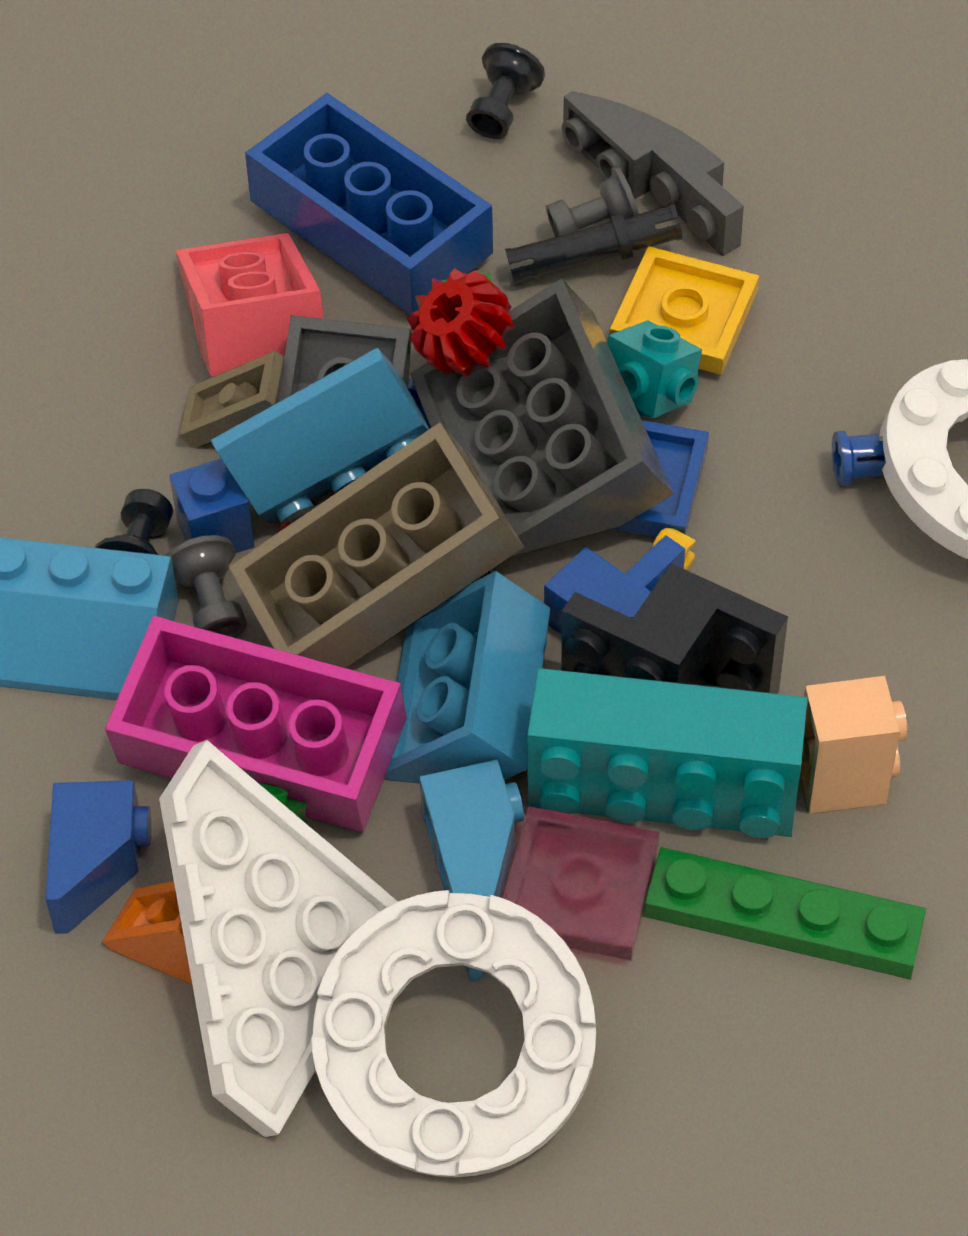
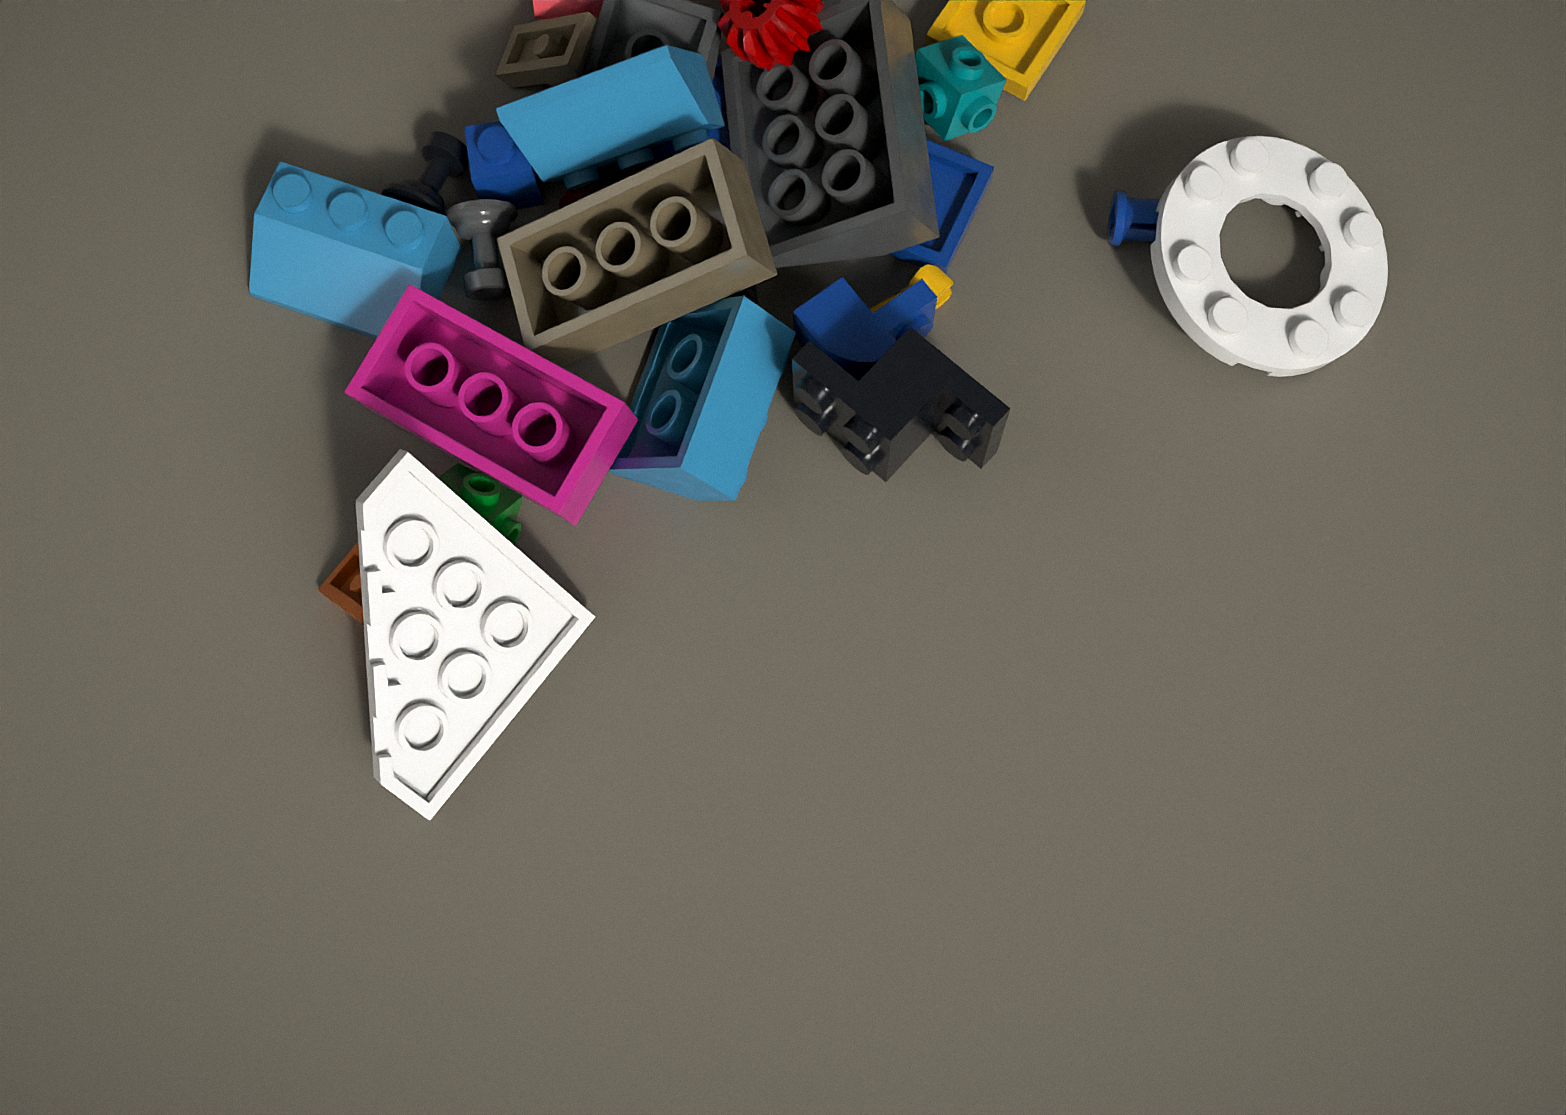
camera: 15 degrees right, 20 degrees up
(92, 846) = (316, 499): blue slope -> none
(446, 932) = (528, 822): white plate -> none
(472, 829) = (668, 569): dark azure slope -> none
(584, 879) = (758, 623): clear pink plate -> none
(665, 752) = (863, 514): teal brick -> none
(785, 912) = (944, 689): green plate -> none
(850, 744) = (1043, 539): light nougat brick -> none

